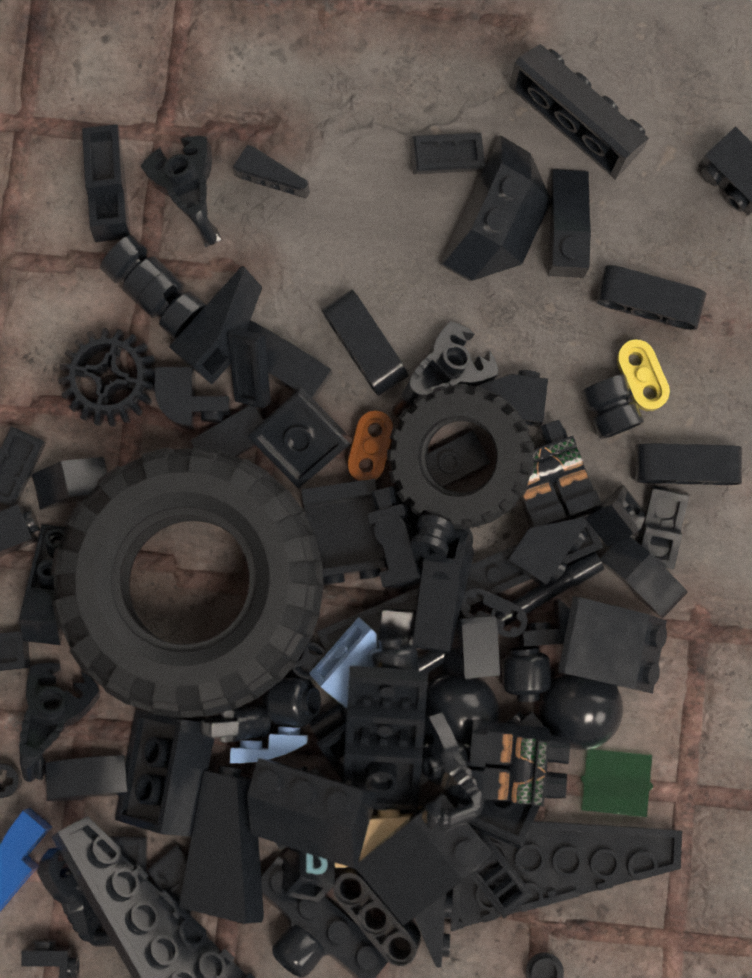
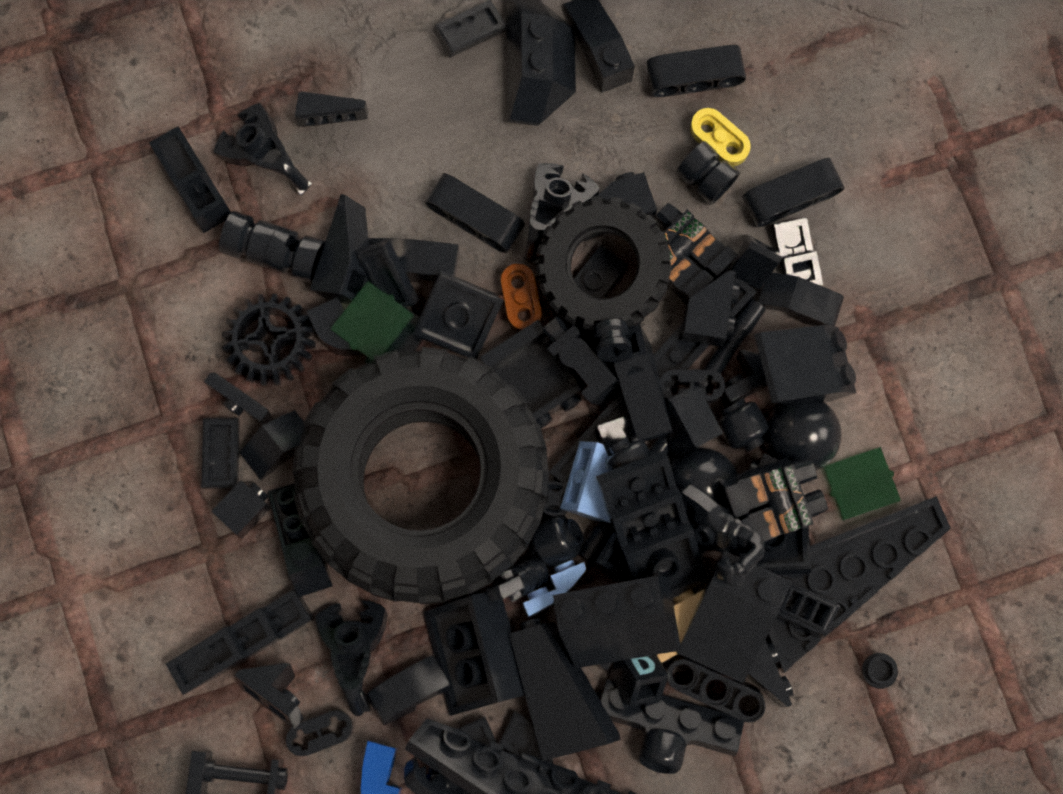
camera: 25 degrees left, 5 degrees down
(51, 423) = (237, 400): none -> black plate
(212, 407) = (372, 321): none -> clear green piece

